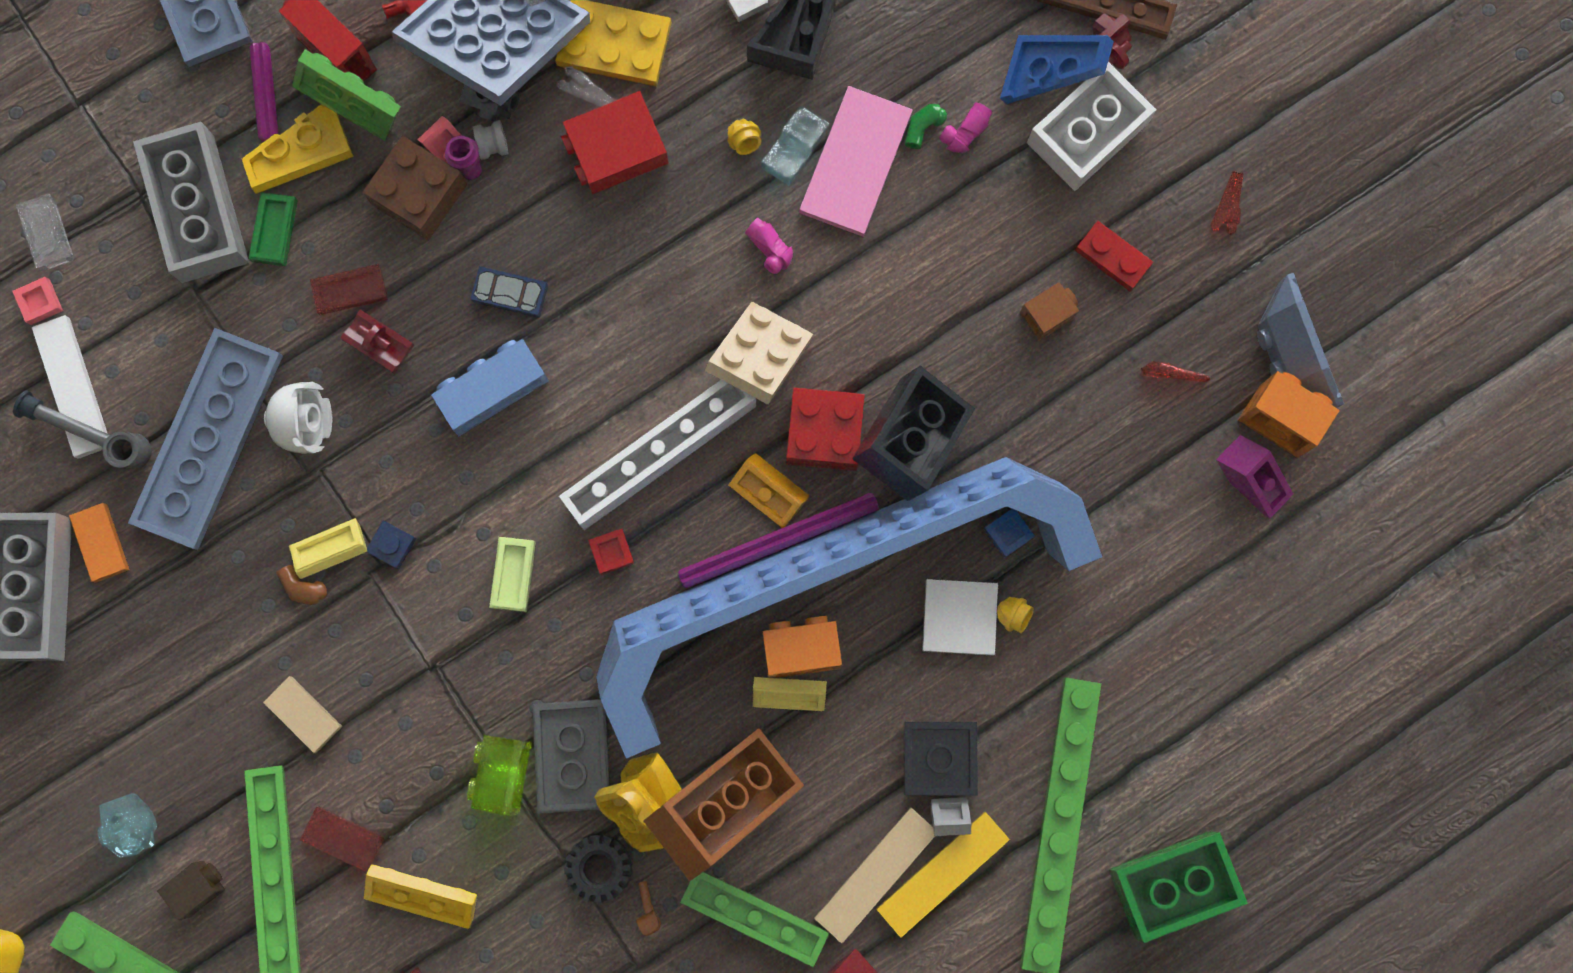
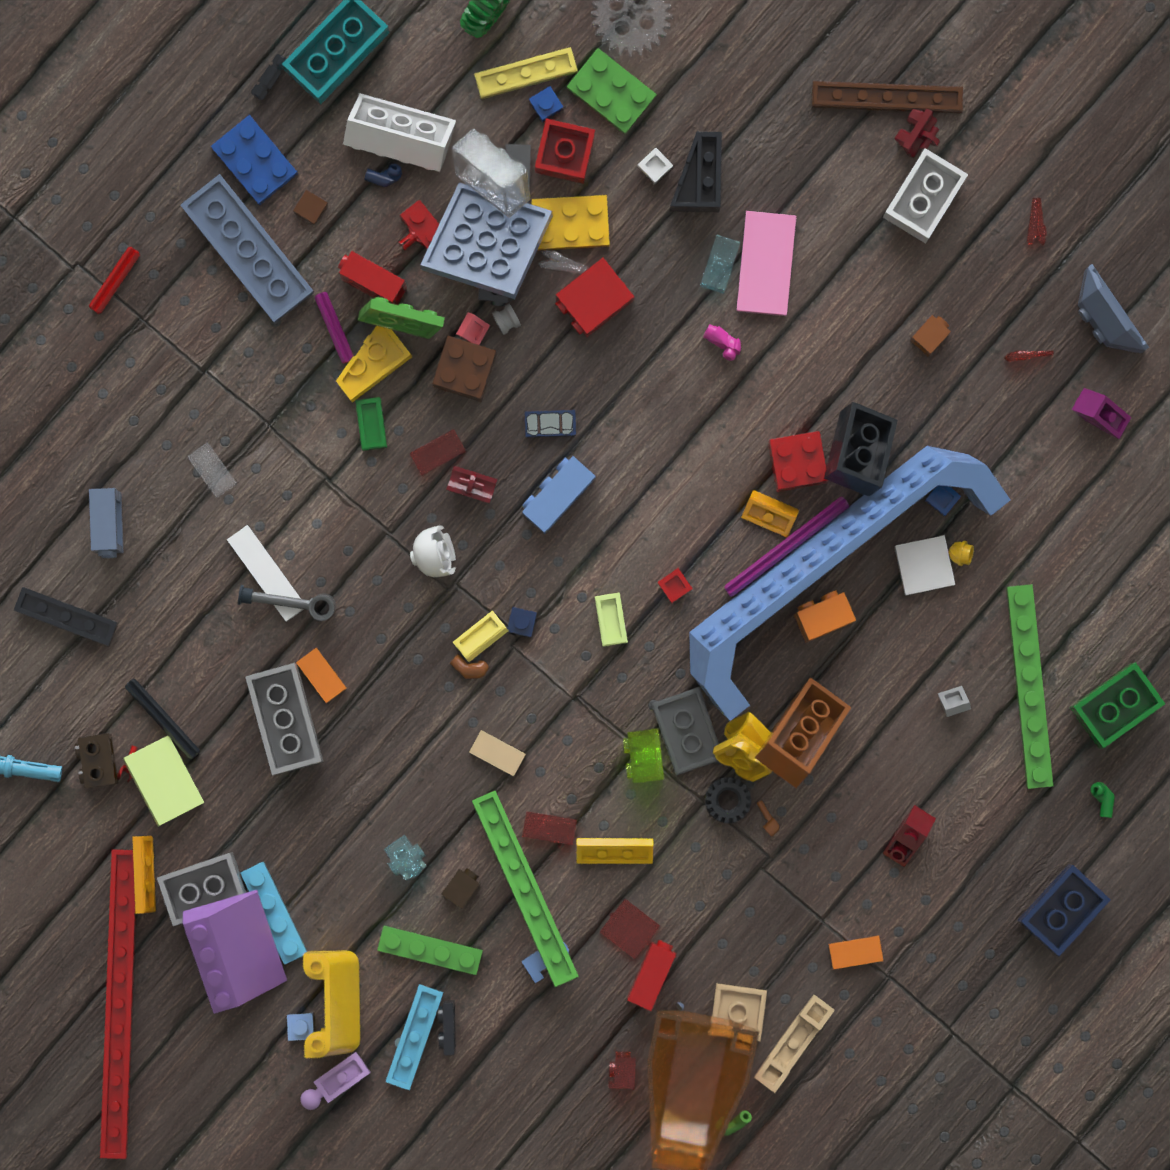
camera: 15 degrees left, 5 degrees up
(37, 301) = (225, 520): coral plate -> none
(190, 202) = (312, 422): light grey brick -> none
(205, 439) = (373, 584): sand blue plate -> none
(463, 155) = (490, 333): magenta cone -> none
(656, 452) = (688, 507): white brick -> none
(744, 136) = (683, 267): yellow plate -> none
(755, 918) = (842, 803): bright green plate -> none
(759, 352) = (739, 421): tan plate -> none
(789, 694) = (823, 649): light yellow tile -> none
(875, 875) = (914, 754): tan tile -> none
(922, 120) = (804, 221): green arm -> none
(940, 758) = (937, 664): black plate -> none
(942, 875) = (959, 741): yellow tile -> none
(971, 127) = (840, 217): dark pink arm -> none
(1054, 62) = (887, 157): blue wing -> none
(1114, 256) = (965, 282): red plate -> none
(1289, 414) = (1113, 364): orange brick -> none

